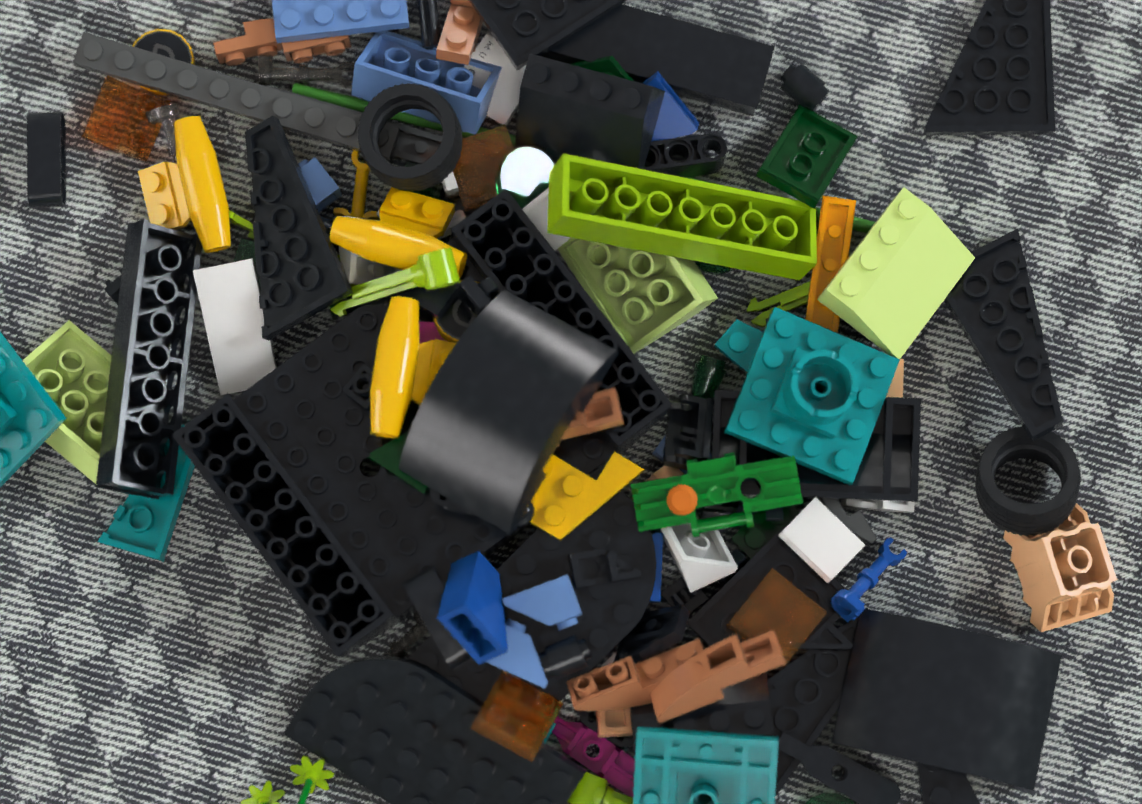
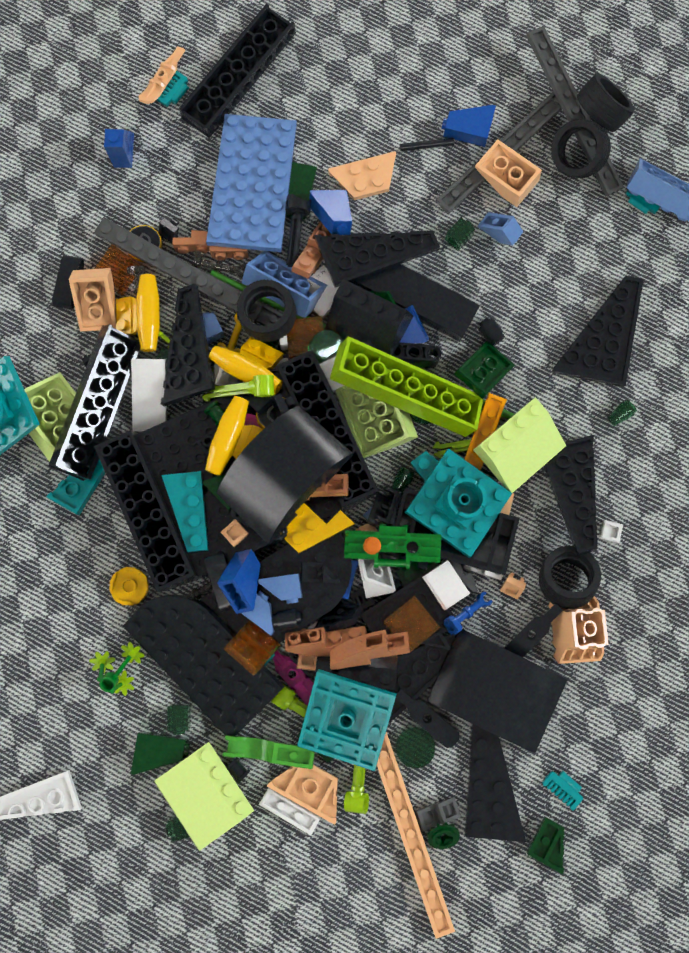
camera: 10 degrees right, 0 degrees up
(101, 179) = (93, 298): none -> light nougat slope
(202, 28) = (168, 229): none -> black tile
(278, 663) = (129, 586): none -> yellow tile
(353, 499) = (188, 504): none -> teal wing
(364, 332) = (214, 411): none -> dark green bush
(443, 530) = (234, 533): none -> light nougat tile
(936, 518) = (513, 586): none -> light nougat tile
(974, 611) = (522, 643): none -> black piece
(1059, 180) = (623, 412): none -> clear green cone
(1083, 388) = (611, 531): none -> white tile

